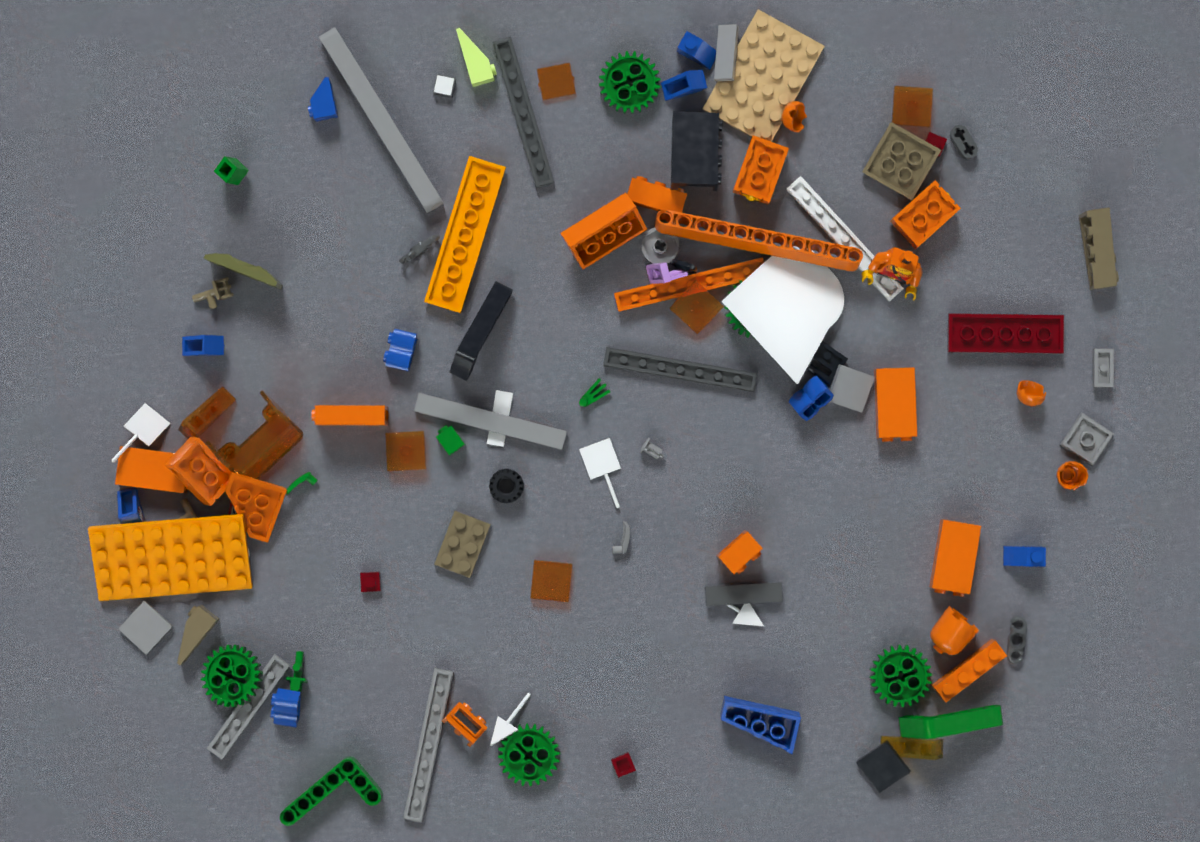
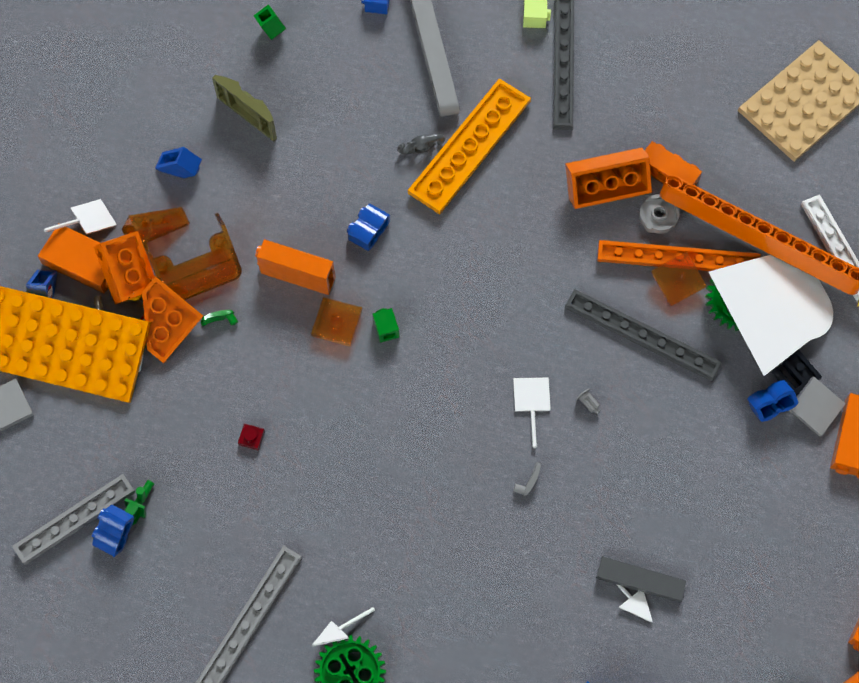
camera: 20 degrees right, 20 degrees down
(196, 629) = (55, 423): dark tan slope -> none
(219, 287) = (216, 121): dark tan arm -> none
(238, 658) = (83, 467): green gear -> none
(329, 787) = (121, 634): green beam -> none
(444, 85) = (496, 16): white tile -> none
(461, 728) = (287, 614): orange window -> none
(462, 544) = (360, 431): dark tan plate -> none
(479, 331) = (448, 229): black beam -> none
(490, 421) = (433, 322): light grey tile -> none
(494, 486) = (426, 399): black tyre -> none
(502, 406) = (443, 322): white sticker -> none
(551, 581) = (439, 498): clear orange tile -> none
(556, 81) = (604, 45): clear orange piece -> none
(588, 398) = (541, 332): green piece -> none
(623, 65) = (675, 63): green gear -> none
(659, 272) = (652, 233): lavender piece -> none
(684, 84) = (728, 80): blue slope -> none
(696, 149) = (723, 135): black panel -> none
(697, 50) = (749, 55): blue slope -> none
(726, 52) = (777, 65): light grey tile -> none
(740, 552) = (651, 530): orange brick -> none
(760, 170) = (781, 174): orange piece -> none
(793, 116) = (828, 137): orange hair -> none

